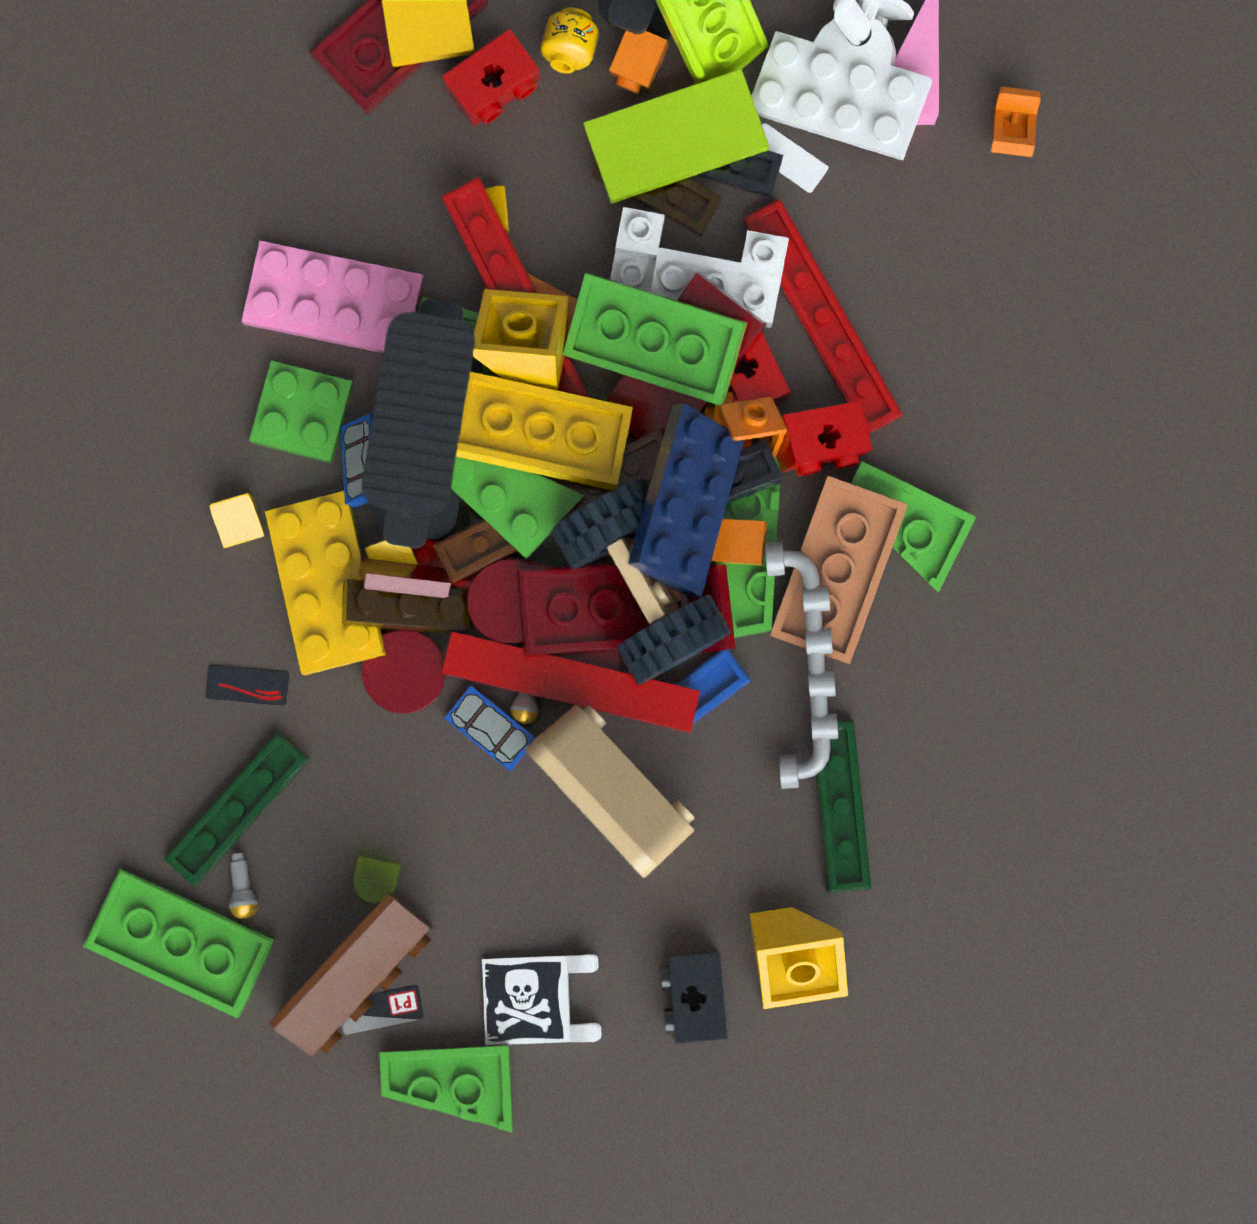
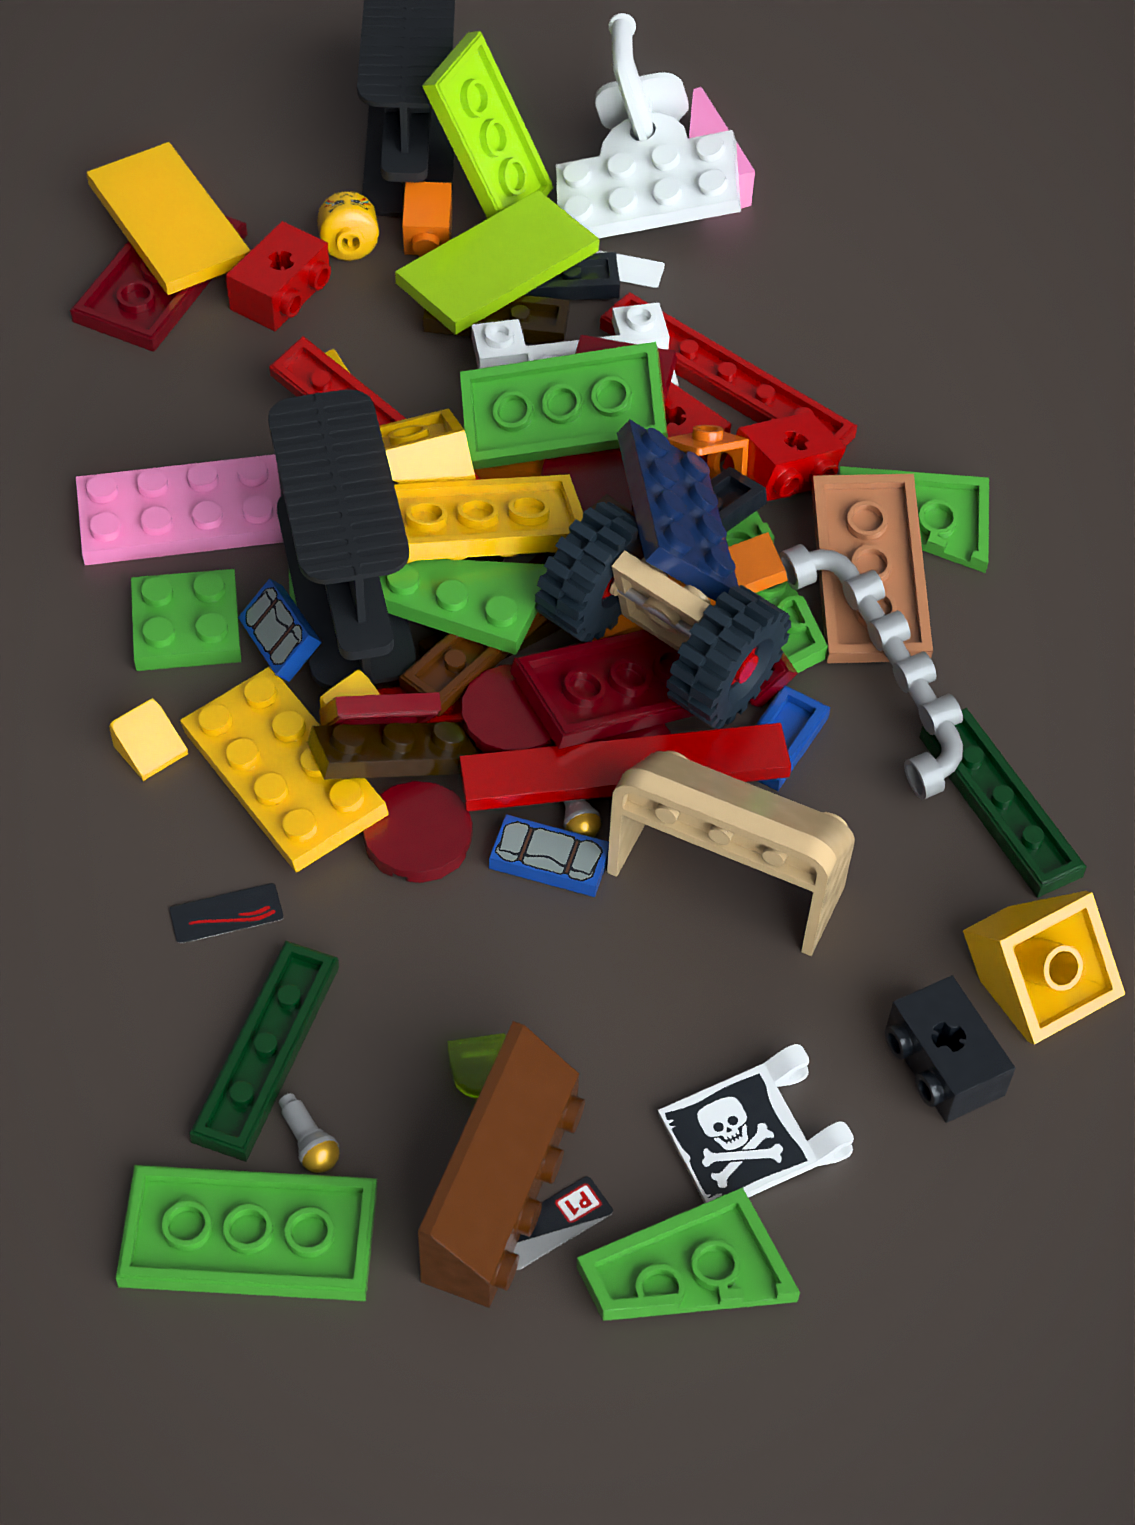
camera: 25 degrees left, 30 degrees down
(1015, 121) = (828, 169): orange bracket -> none

